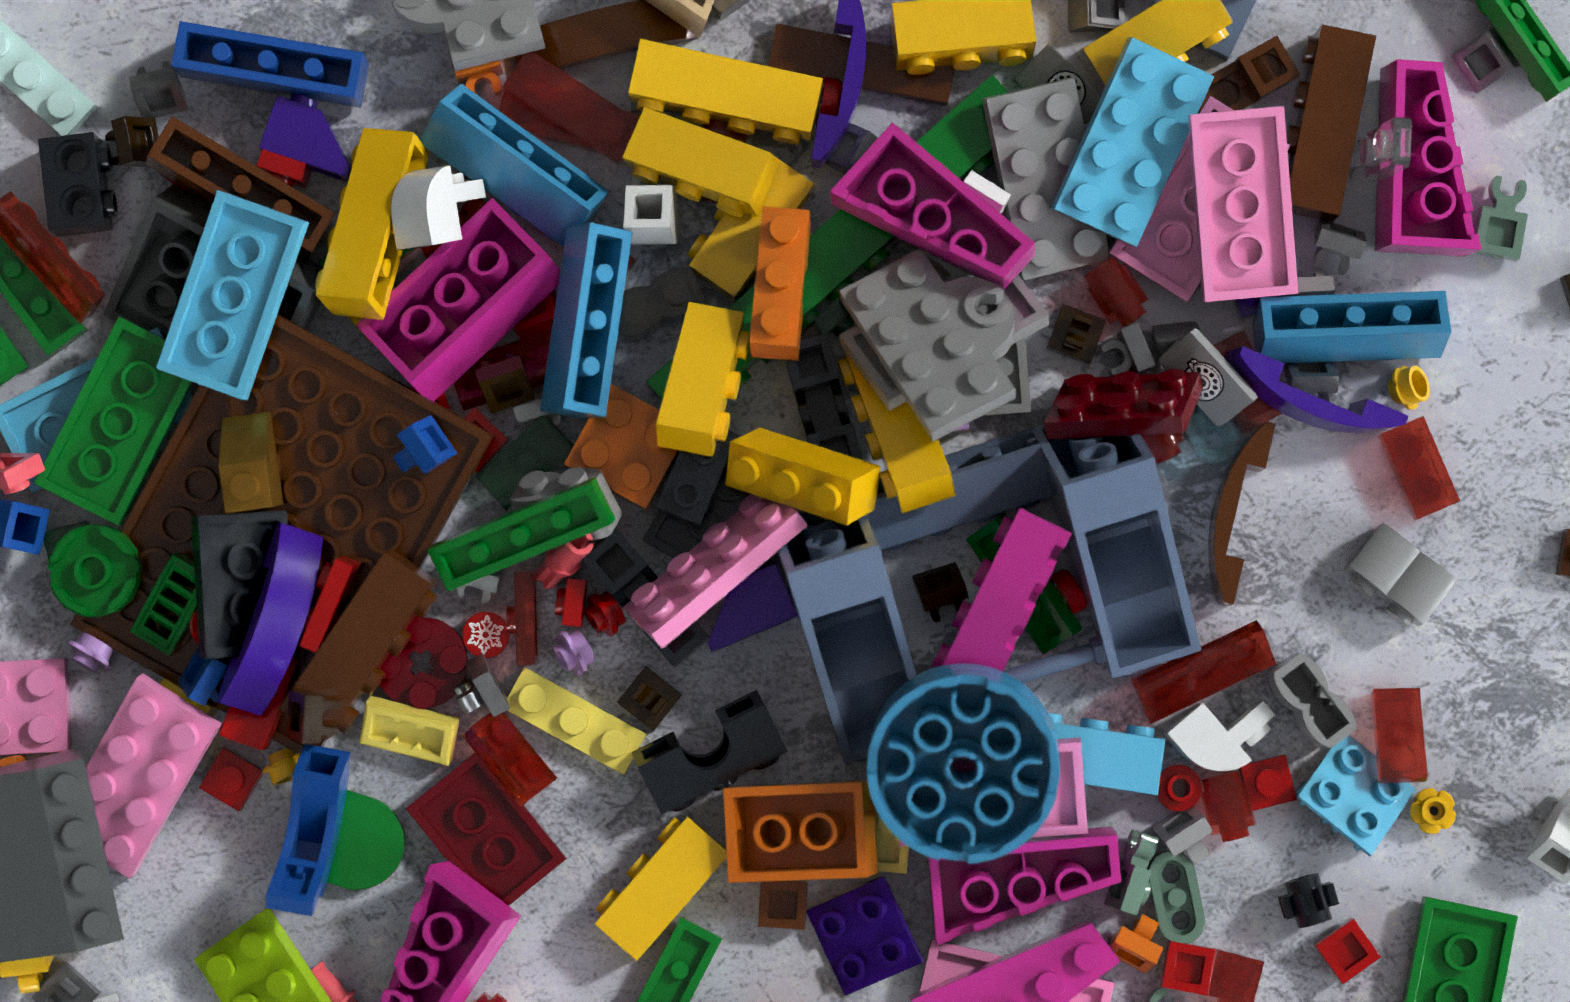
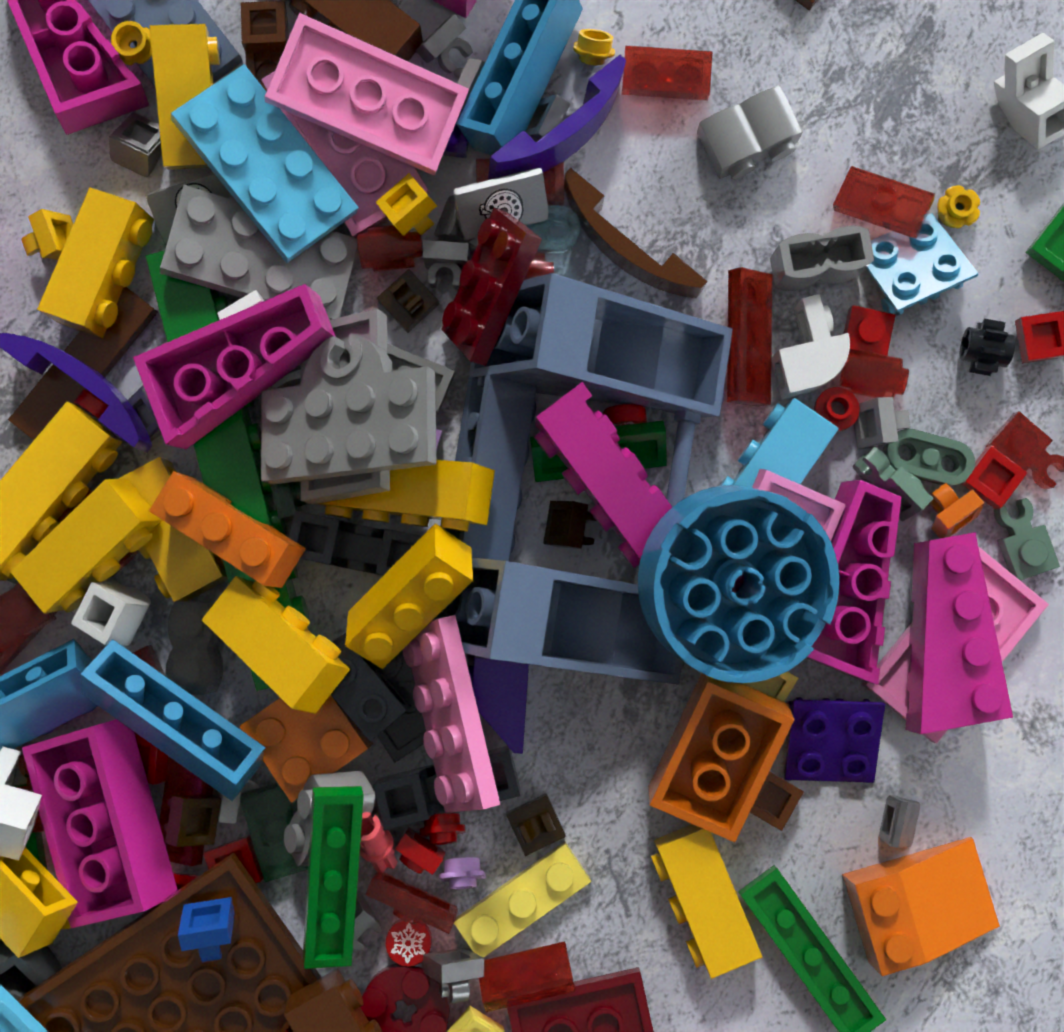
camera: 65 degrees left, 0 degrees up
(679, 776) = (617, 835): black arch -> none
(1160, 291) = (407, 206): none -> yellow tile

